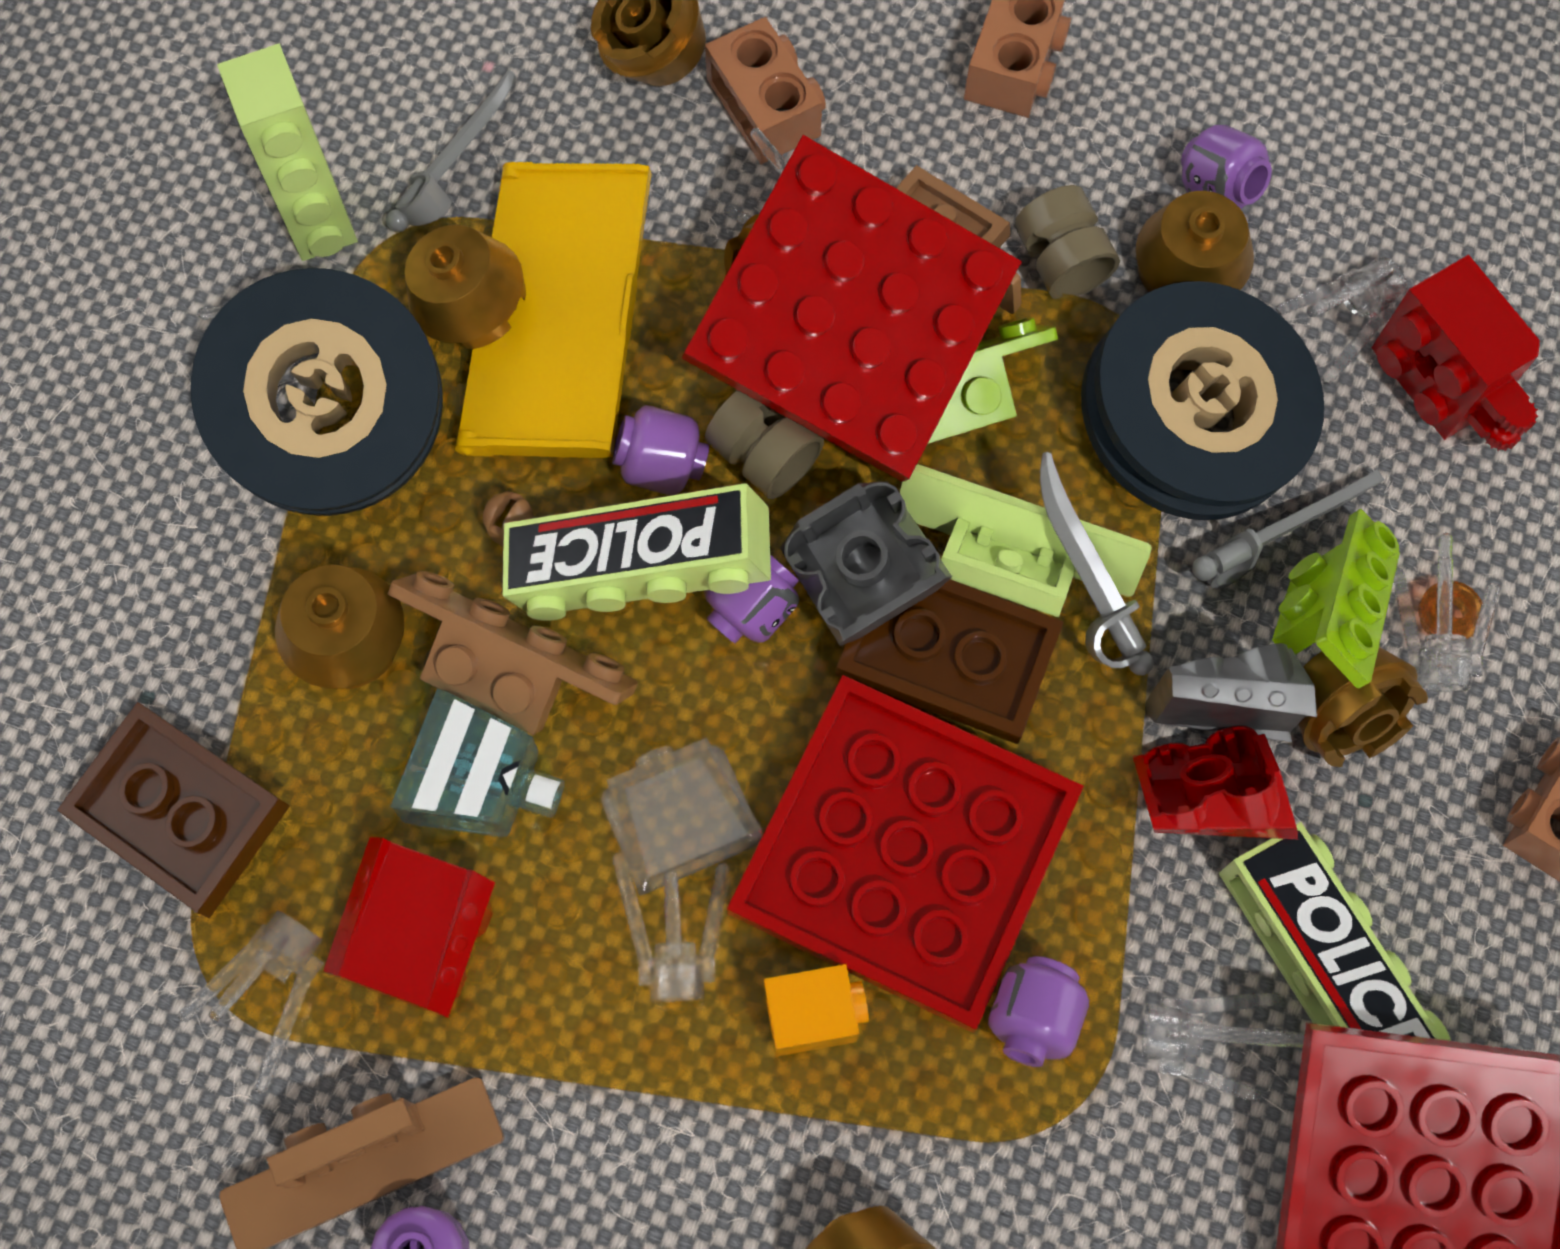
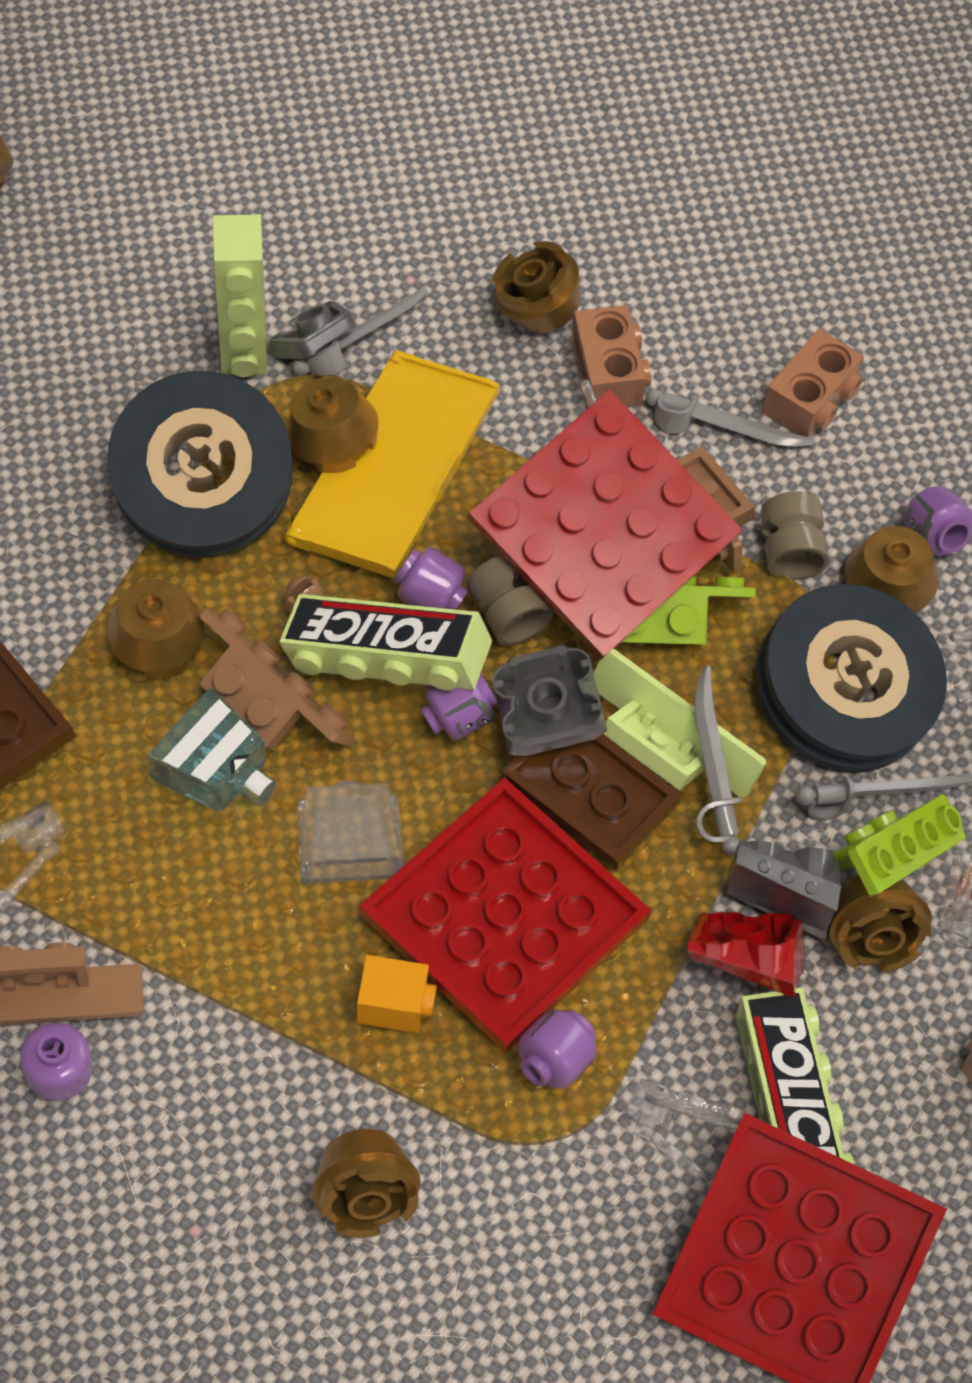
camera: 15 degrees right, 10 degrees down
(396, 168) = (313, 330): none -> flat silver piece
(410, 926) = (131, 844): red slope -> none
(676, 969) = (307, 936): clear plant -> none
(865, 131) = (675, 413): none -> light grey sword

